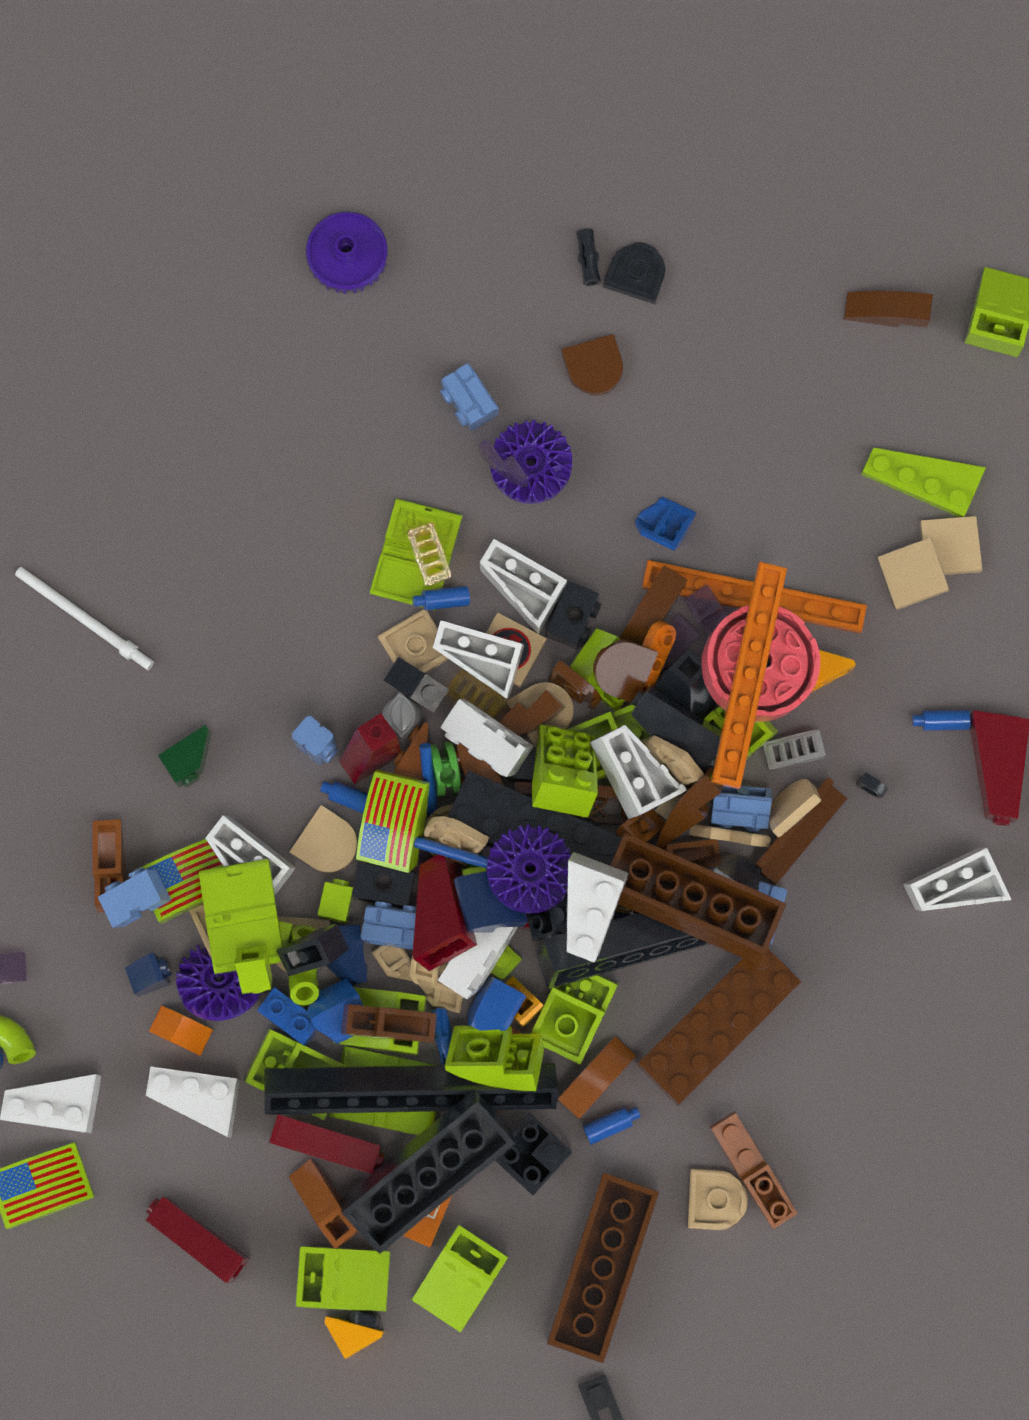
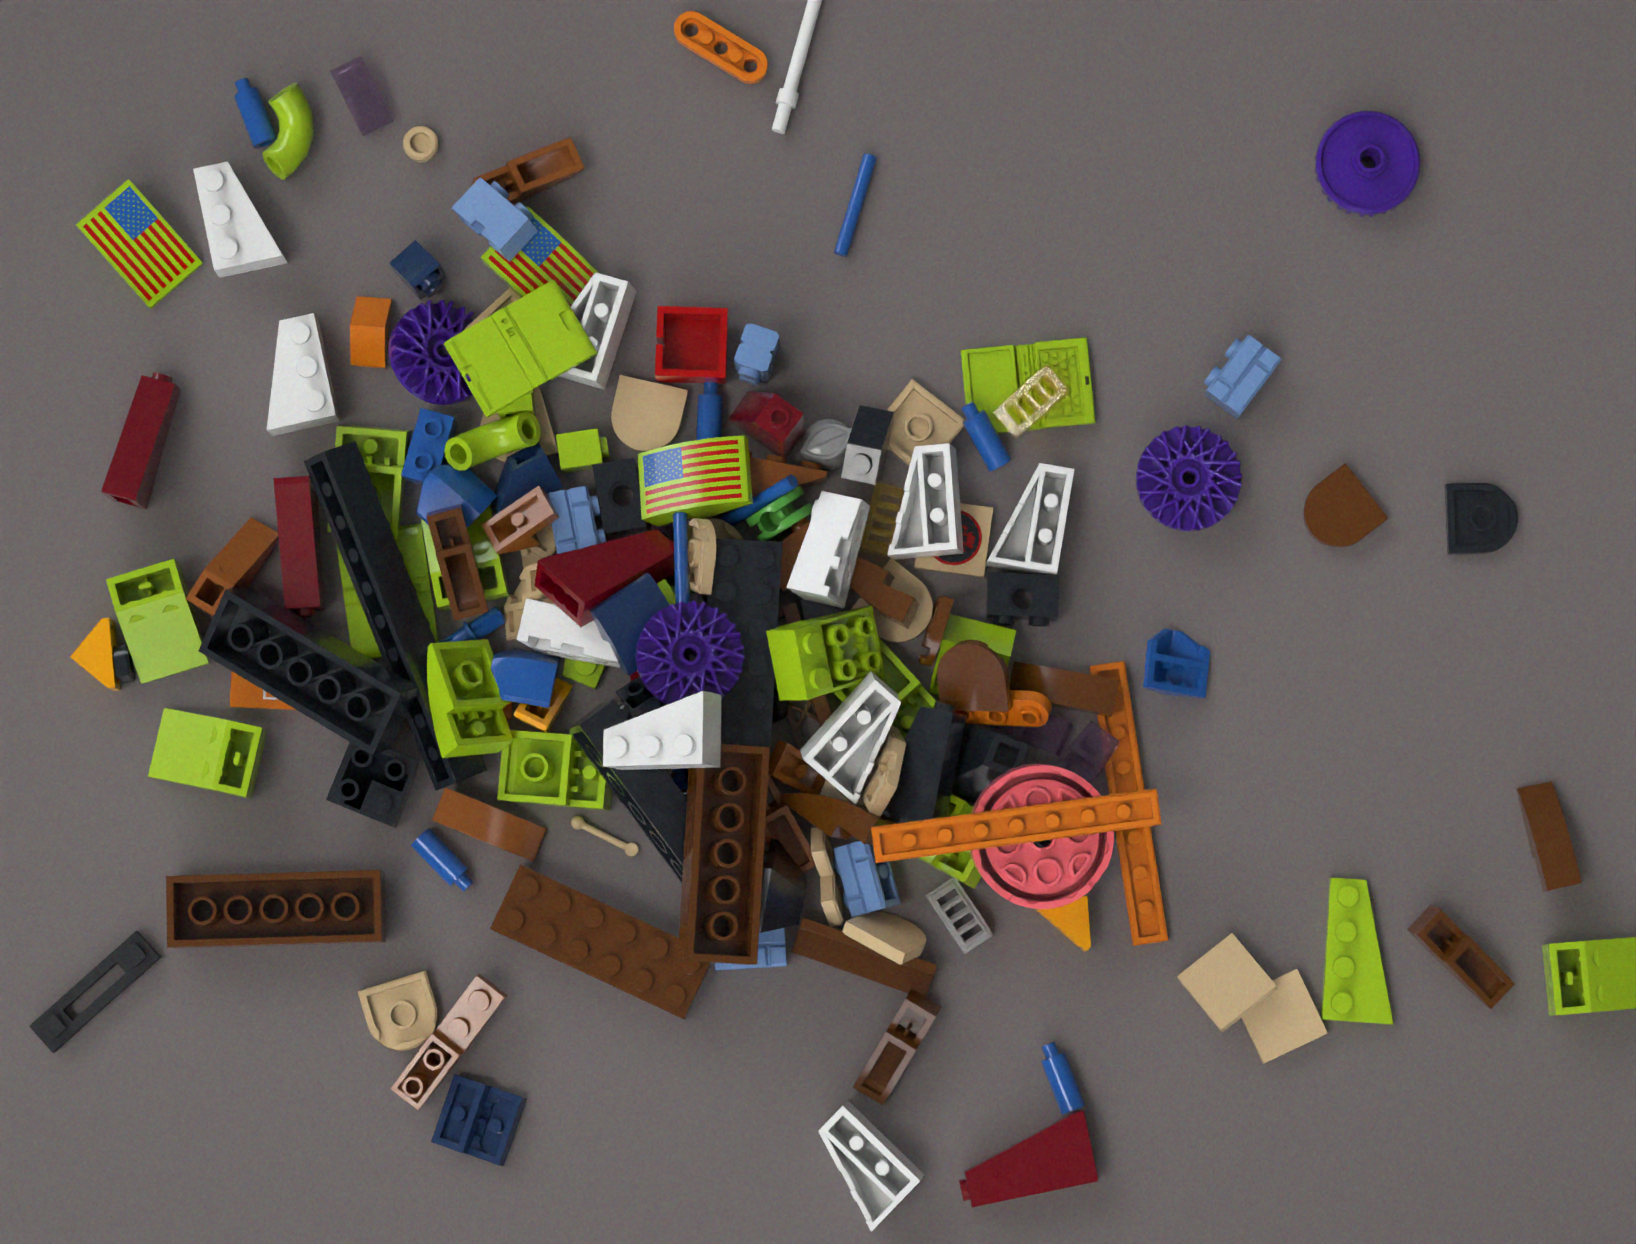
camera: 70 degrees right, 5 degrees up
(50, 938) = (420, 144): none -> tan tile
(57, 689) = (711, 35): none -> orange plate
(187, 757) = (684, 215): dark green slope -> none
(229, 630) = (855, 205): none -> blue bar
(253, 969) = (461, 385): lime brick -> none
(289, 787) = (693, 344): none -> red piece
(313, 950) = (508, 444): black slope -> none
(375, 968) = (518, 523): none -> dark orange slope
(508, 468) = (1165, 453): clear purple slope -> none
(588, 257) = (1473, 453): black pin -> none
(654, 977) = (578, 822): none -> tan hinge
(820, 1170) = (478, 1120): none -> dark blue slope
(872, 785) = (950, 1023): black tile -> none
(876, 831) = (897, 1047): none -> reddish brown slope
(952, 401) = (1461, 956): none -> reddish brown slope

